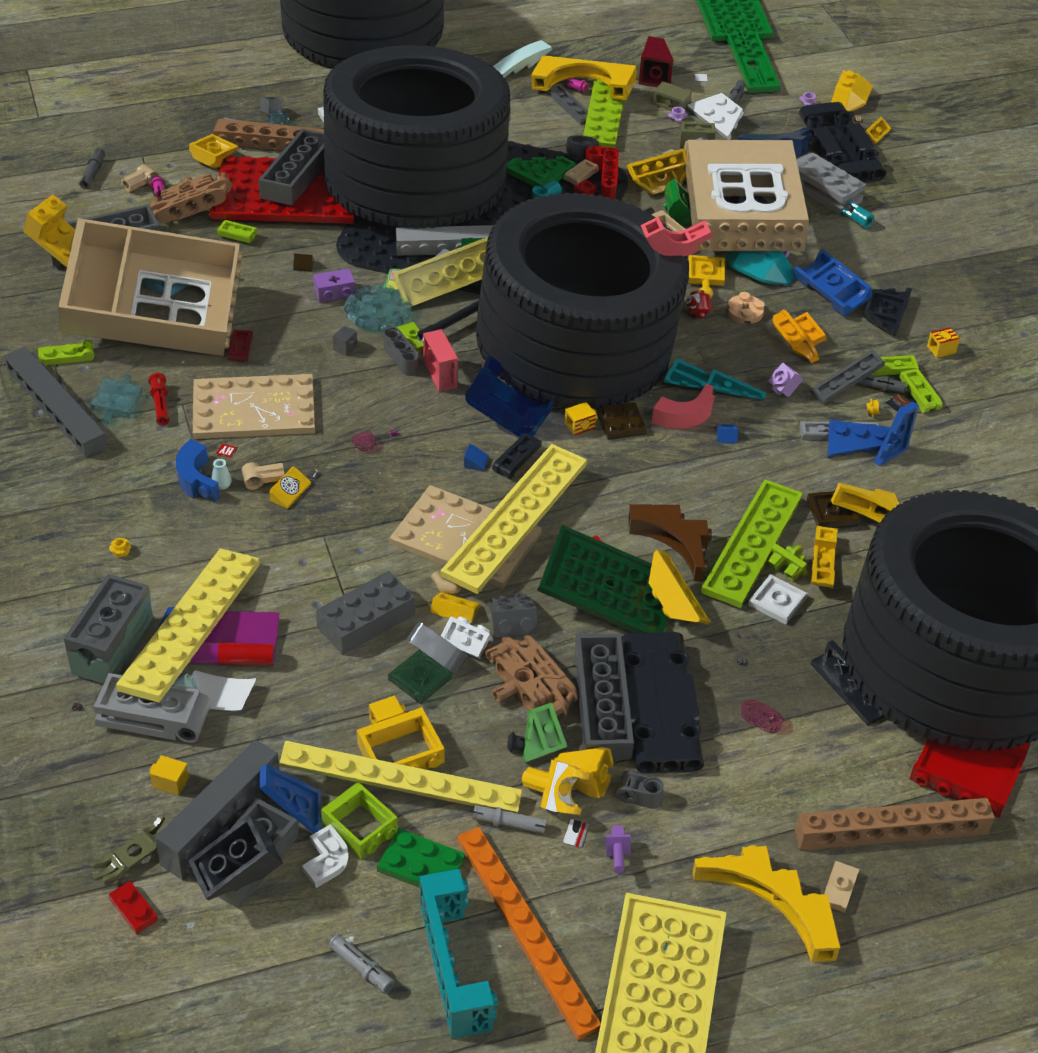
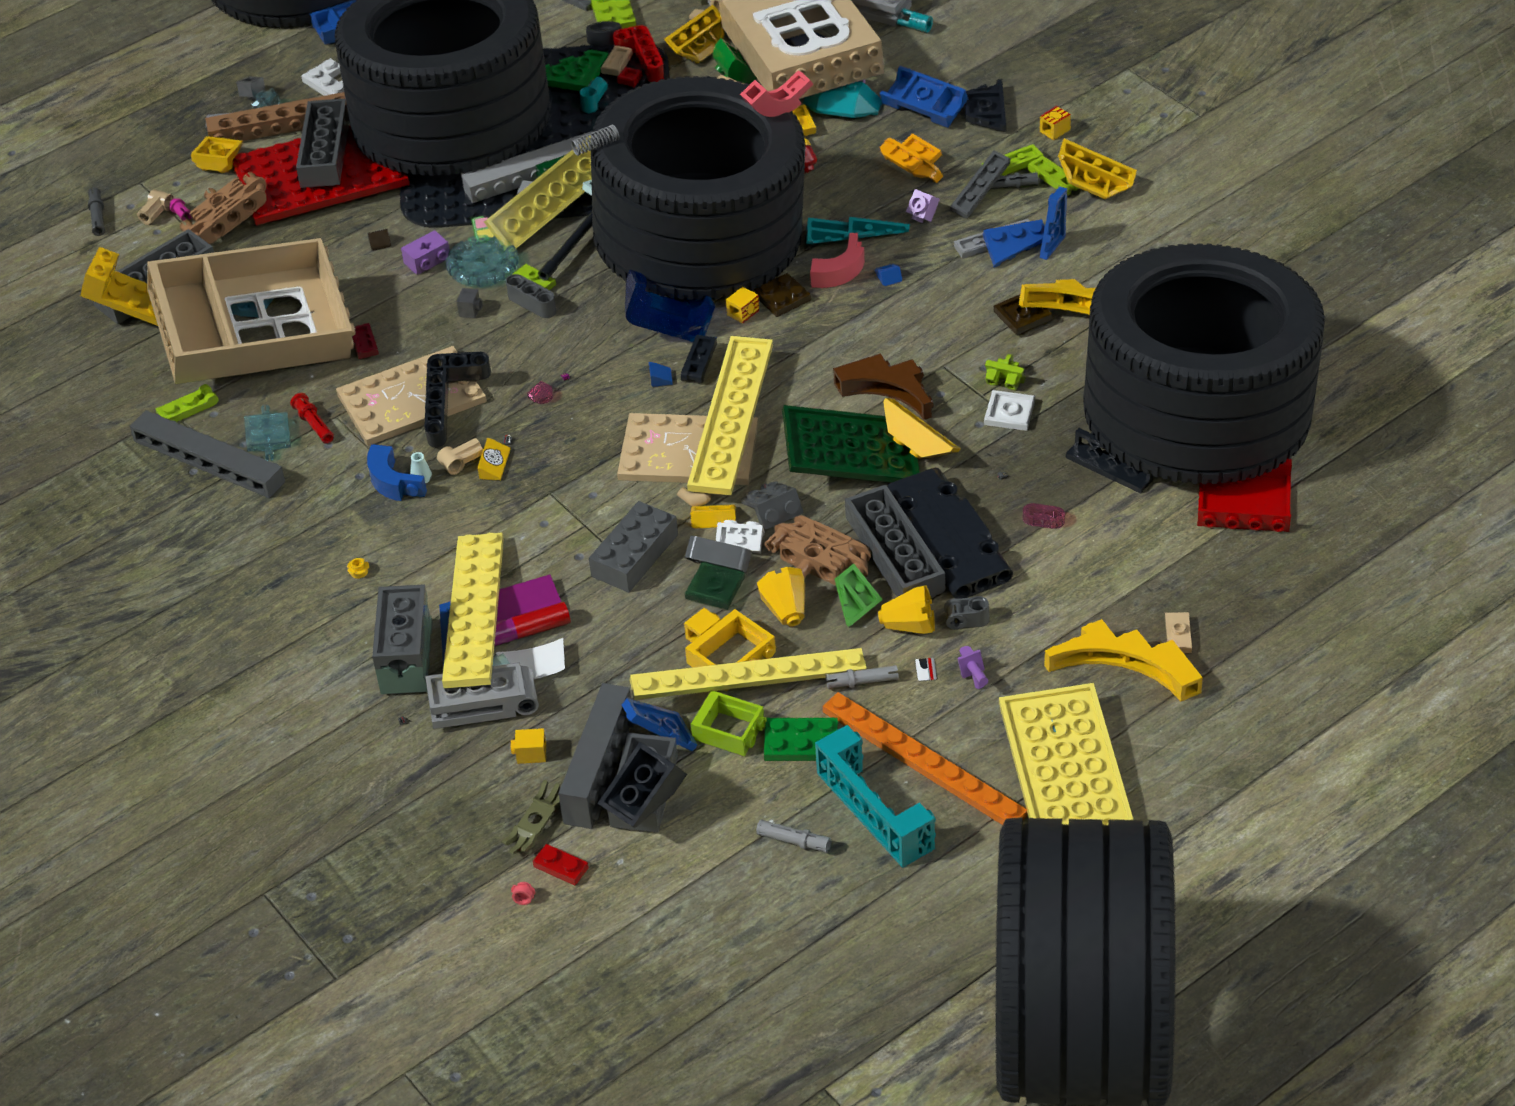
camera: 15 degrees left, 0 degrees up
(81, 924) = (522, 893): none -> coral plate
(226, 450) = (407, 446): red sticker -> none
(237, 231) = (292, 229): lime plate -> none
(282, 393) = (440, 371): none -> black beam
(332, 856) = (719, 763): white plate -> none
(440, 360) = (588, 301): coral window -> none
(473, 232) = (575, 143): none -> light grey piece
(476, 710) = (784, 595): none -> yellow cone
(515, 742) = (833, 612): black piece -> none
(556, 785) = (891, 633): yellow connector -> none
(745, 308) = (857, 148): light nougat plate -> none
(751, 543) = (962, 367): lime plate -> none
(824, 557) = (1034, 358): yellow slope -> none
(873, 407) = (1016, 206): yellow plate -> none
(894, 824) = (1201, 565): medium nougat brick -> none
(900, 400) = (1039, 193): piece -> none
(958, 398) = (1094, 171): none -> yellow wedge

